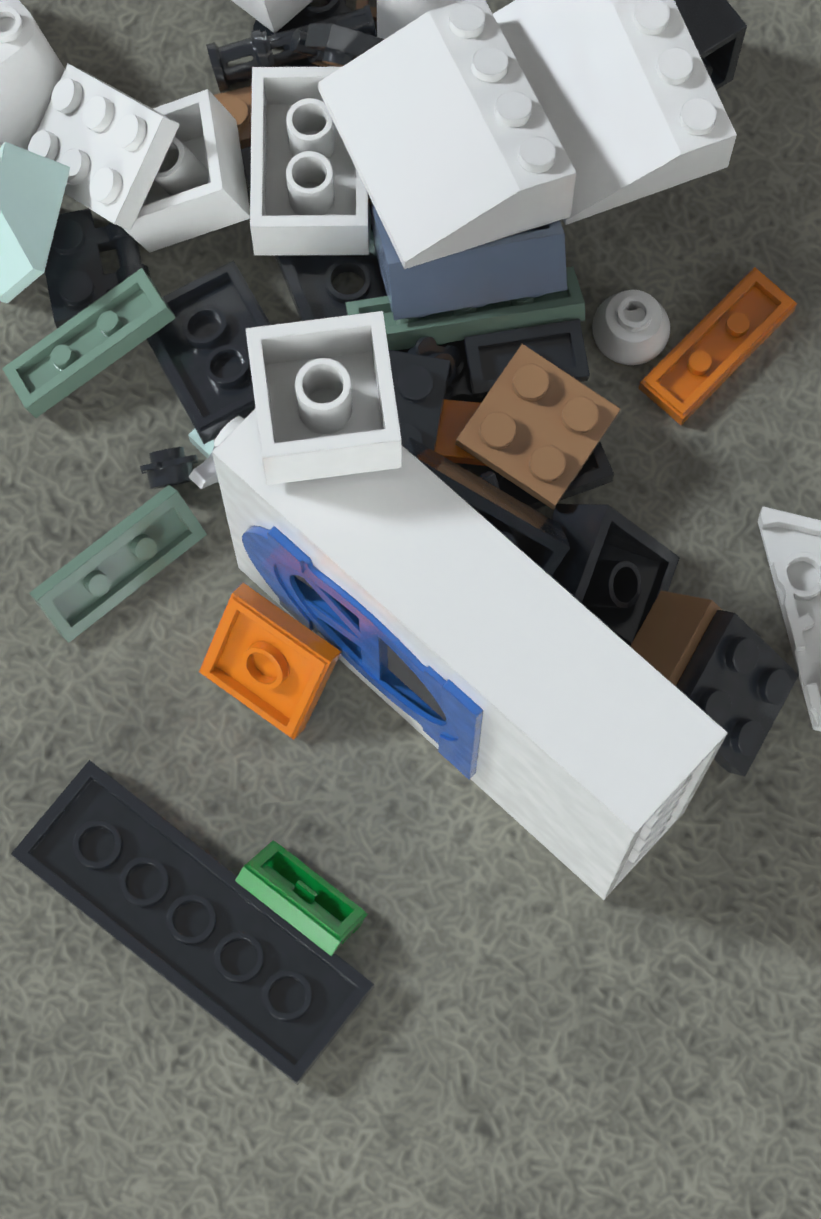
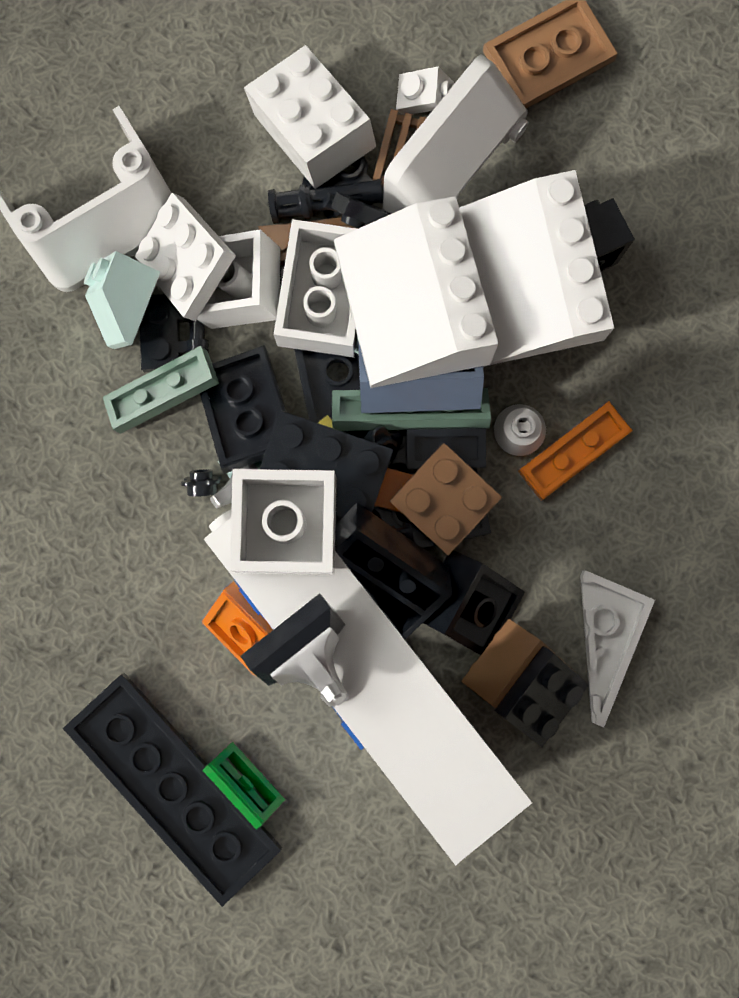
camera: 10 degrees right, 10 degrees up
(118, 563) = (157, 543): sand green plate -> none
(374, 566) = (302, 651): none -> piece

